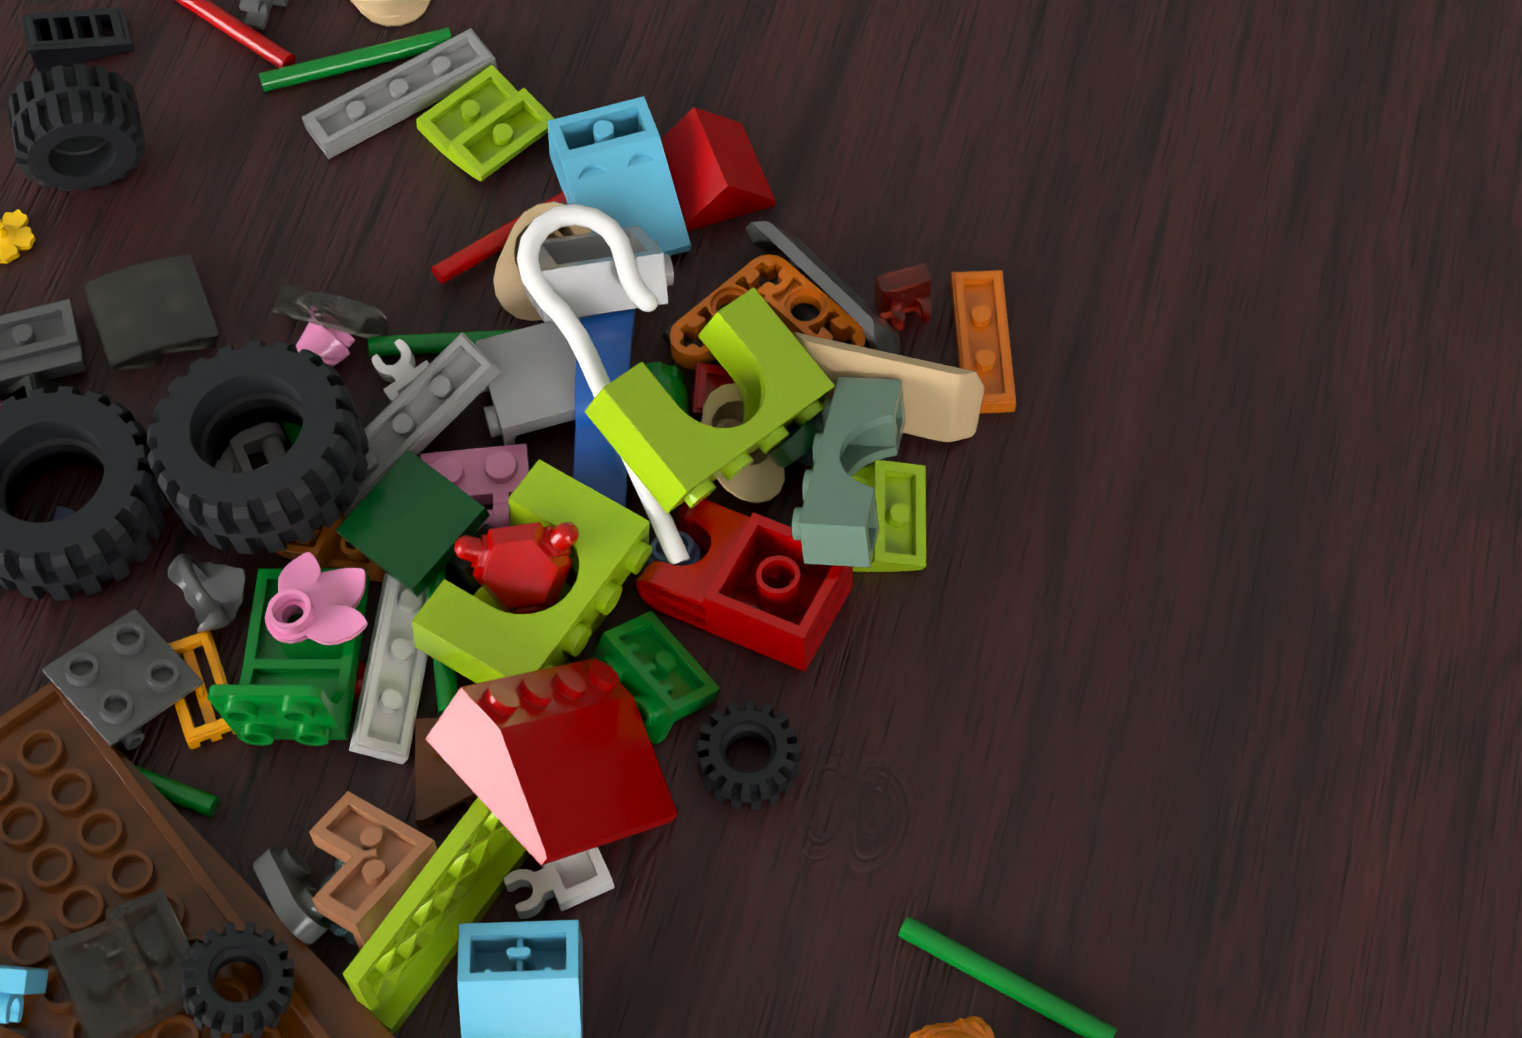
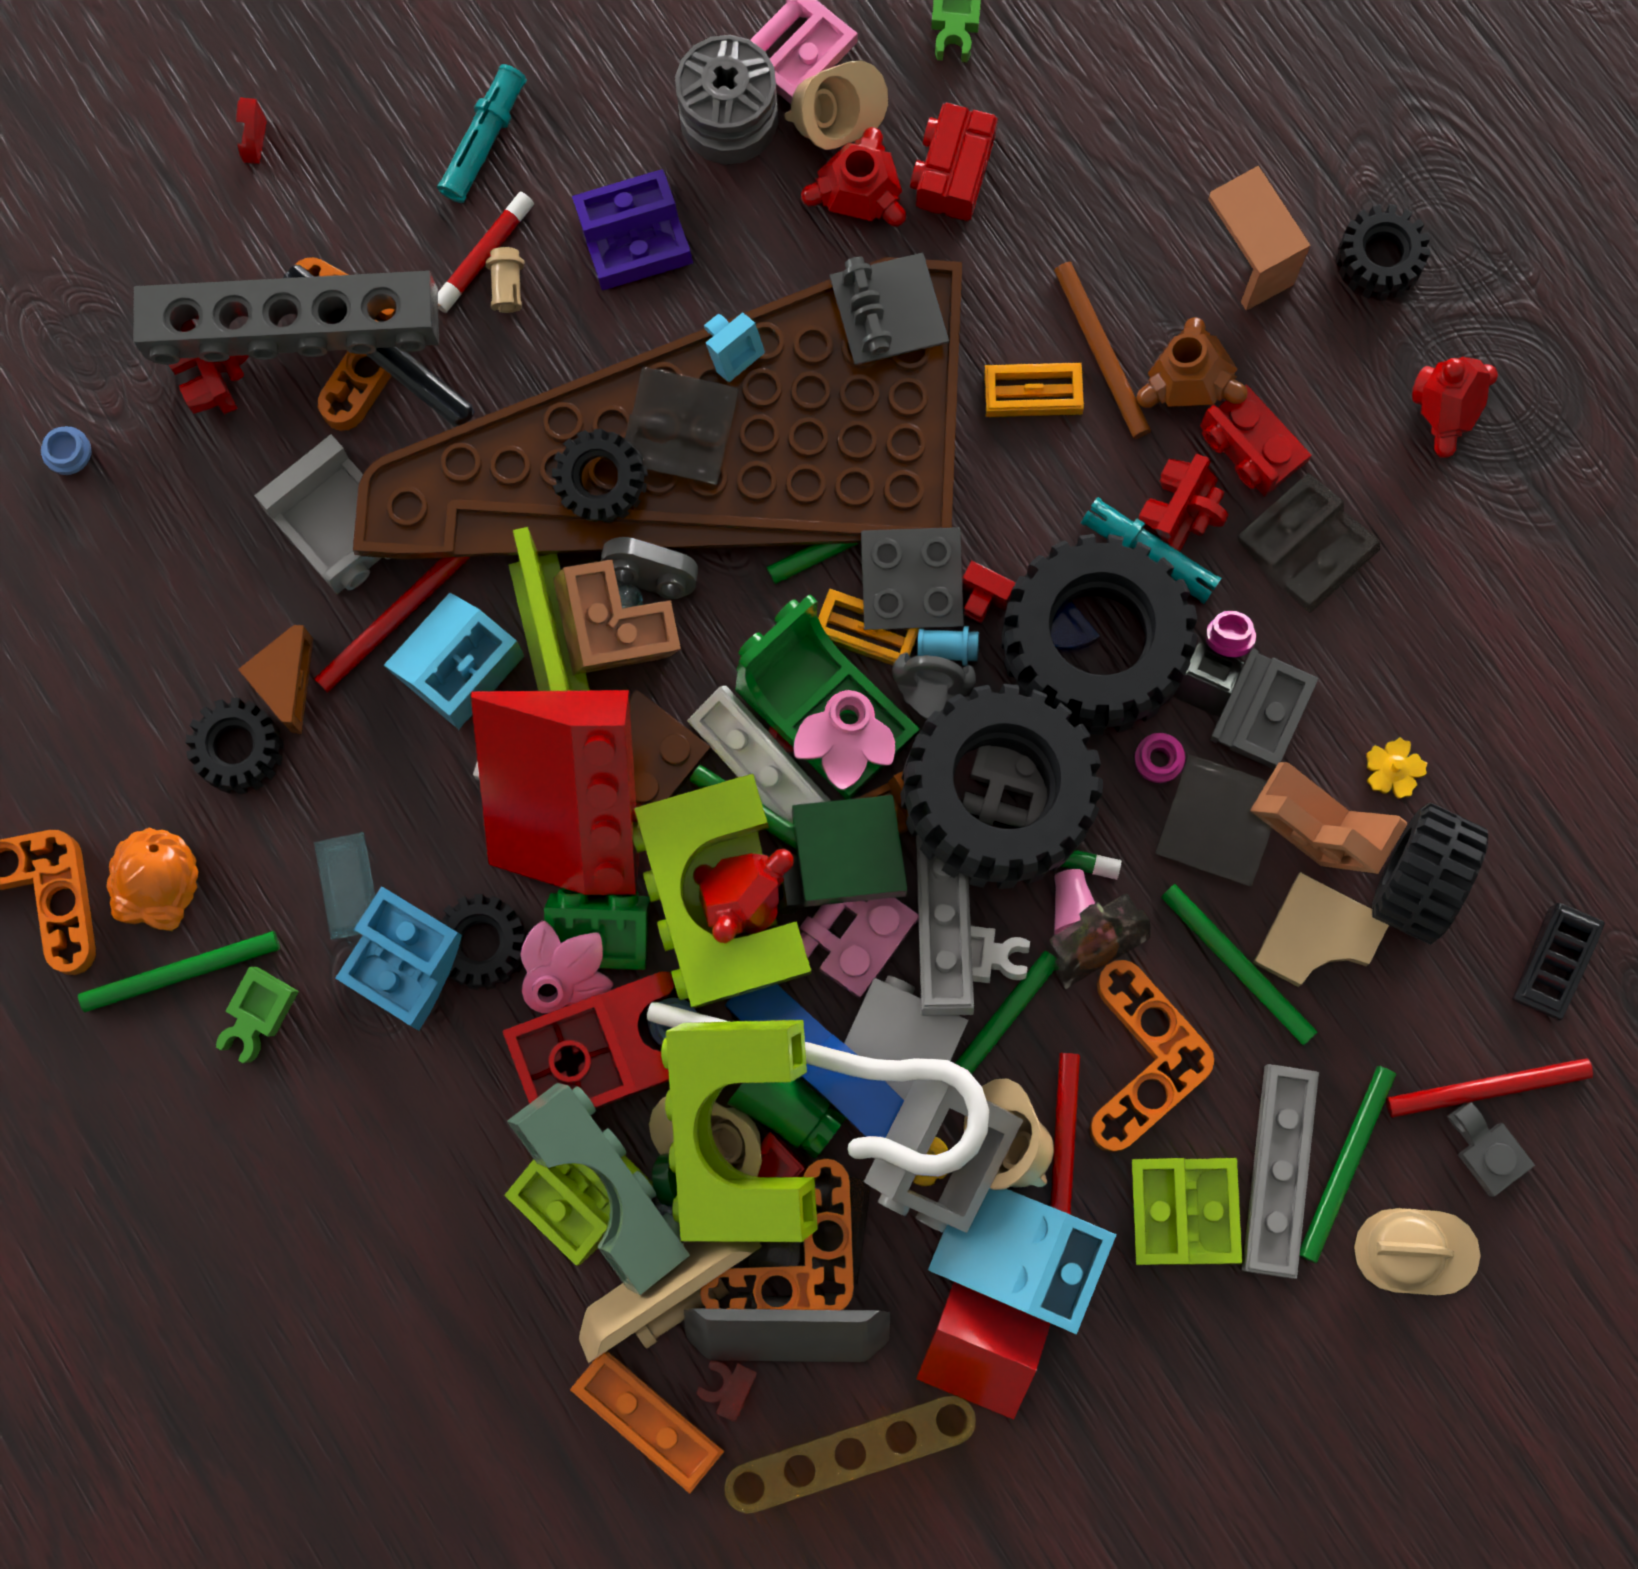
camera: 135 degrees right, 15 degrees up
(87, 614) = (985, 589): none -> red tile
(91, 217) = (1324, 826): none -> nougat panel
(132, 378) = (1170, 747): none -> dark pink plate
(155, 600) = (949, 644): none -> medium azure pin
(187, 195) = (1316, 929): none -> tan tile
(261, 226) = (1239, 964): none -> green bar
(379, 219) = (1162, 1049): none -> orange beam
(714, 666) = (566, 965): none -> bright pink plate
(802, 914) = (344, 882): none -> clear light blue tile
(822, 794) = (400, 958): none -> dark azure slope
(886, 208) = (828, 1470): none -> clear yellow beam
(970, 881) = (259, 1008): none -> bright green plate

